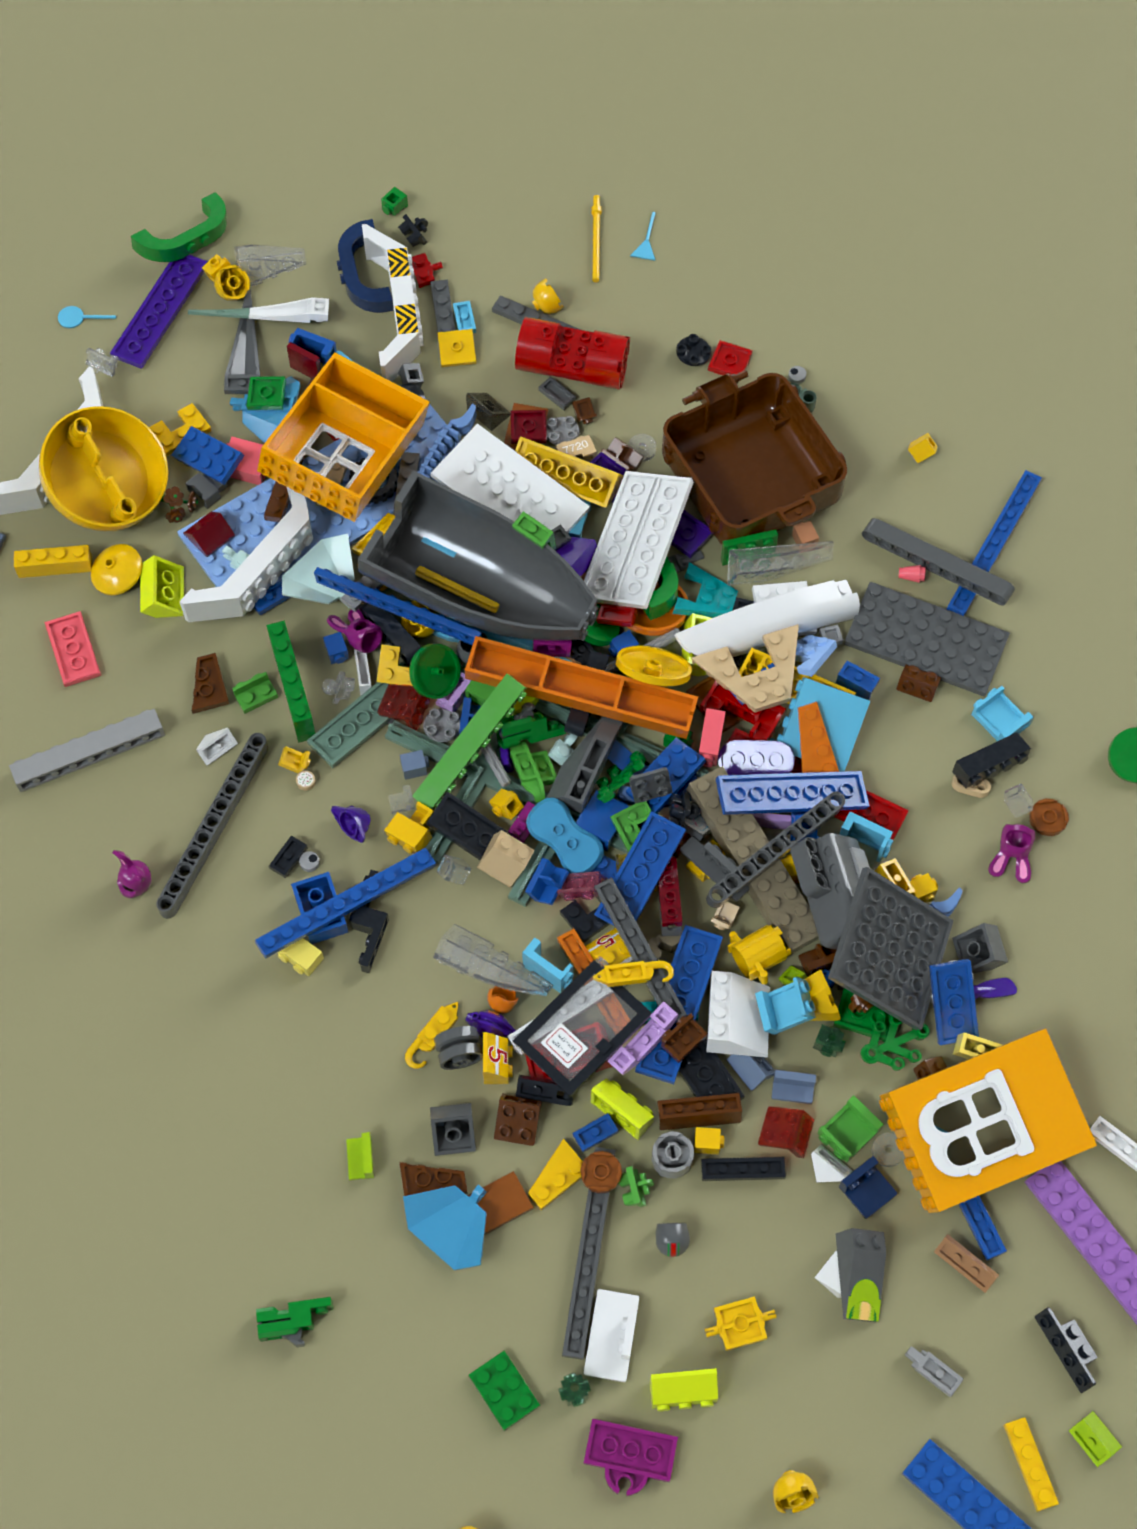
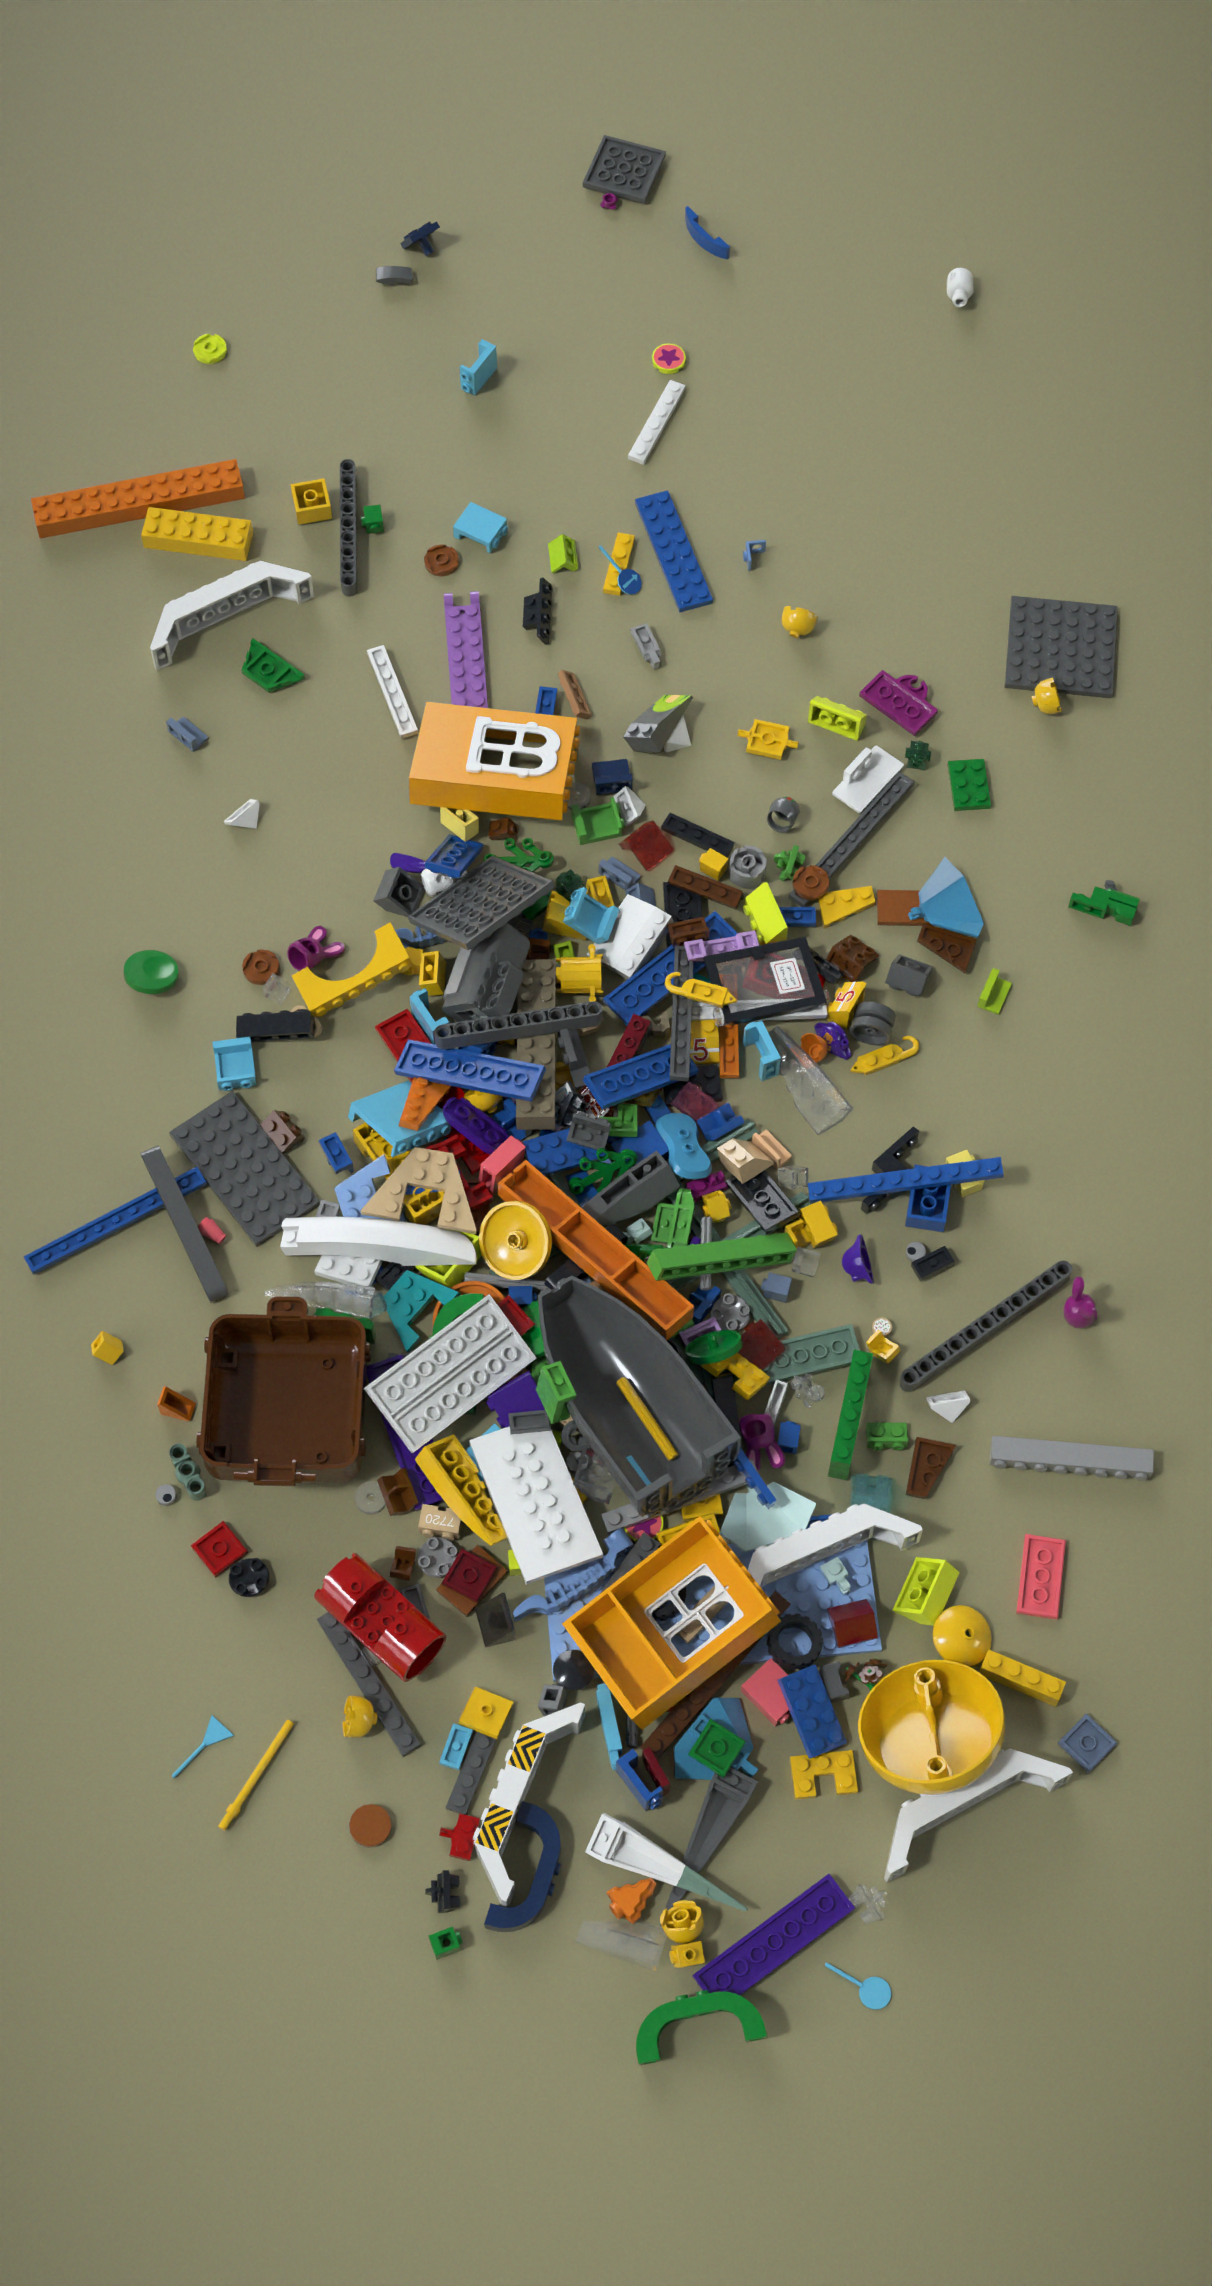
camera: 150 degrees left, 0 degrees up
(237, 478) = (789, 1661): none -> black tyre
(244, 638) = (871, 1491): none -> clear light blue slope
(278, 284) = (631, 1899): none -> orange rock
(489, 886) = (771, 1148): none -> light nougat panel
(494, 246) = (370, 1825): none -> dark orange tile
(797, 1048) = (599, 890): none -> yellow wing
(841, 431) = (175, 1405): none -> orange slope
(938, 867) = (387, 961): none -> yellow arch
(1005, 1443) = (628, 579): none -> blue piece

